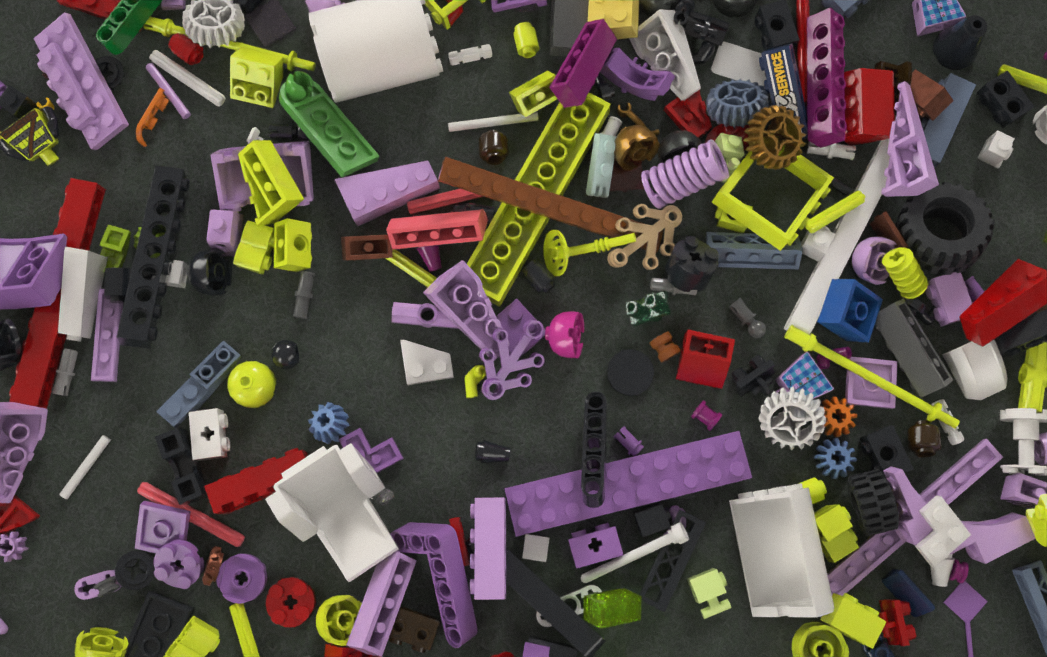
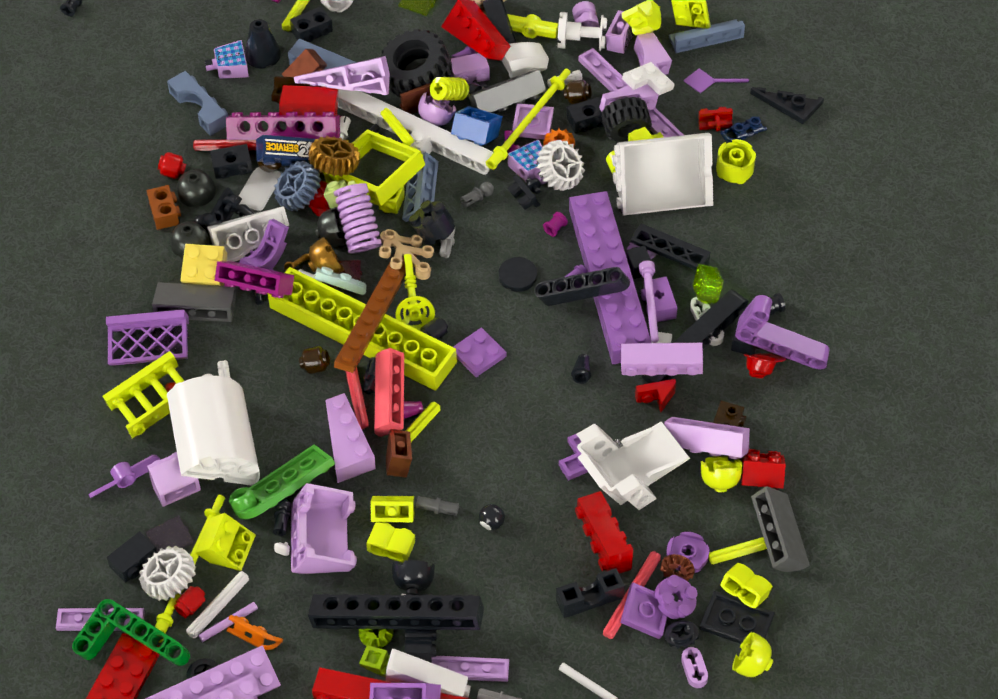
camera: 90 degrees left, 25 degrees down
(106, 586) = (696, 649): dark grey bush -> none
(200, 385) = (513, 584): sand blue slope -> none
(203, 423) = (551, 571): white brick -> none
(225, 229) = (374, 562): lavender torso -> none
(251, 384) = (516, 547): neon yellow cylinder -> none
(269, 181) = (336, 516): neon yellow wedge -> none
(301, 611) = (707, 506): red plate -> none
(328, 423) = (559, 487): medium blue gear -> none
(411, 314) = (462, 411): lavender piece -> none
(425, 363) = (503, 417): white wing -> none
(448, 575) = (682, 390): medium lavender beam -> none
(463, 301) = (457, 374): lavender wedge -> none
(472, 378) = (518, 382): neon yellow arm -> none
(492, 121) = (289, 363): white bar -> none
(510, 361) = (504, 346): medium lavender plant -> none
(526, 40) = (217, 334): neon yellow brick -> none
(534, 94) = (270, 324): neon yellow brick -> none
(565, 334) = (485, 311): dark pink cylinder -> none
(626, 530) = (647, 270): none -> lavender piece
(649, 308) = (466, 254): clear green hips -> none
(665, 347) = (497, 248): dark orange wheel -> none
(676, 534) = (650, 237): white piece -> none
(689, 114) = (302, 223): red wing -> none
(704, 359) = (509, 220): red slope -> none
(707, 587) = (692, 230): yellowish green brick -> none
(831, 466) = (591, 145): medium blue gear -> none
(855, 620) = (719, 128): neon yellow brick -> none
(905, 590) = (689, 112): dark blue slope -> none
(941, 573) = (678, 91): white cone -> none
(959, 571) = (678, 80): magenta bush -> none
(996, 149) = (353, 28): white brick -> none

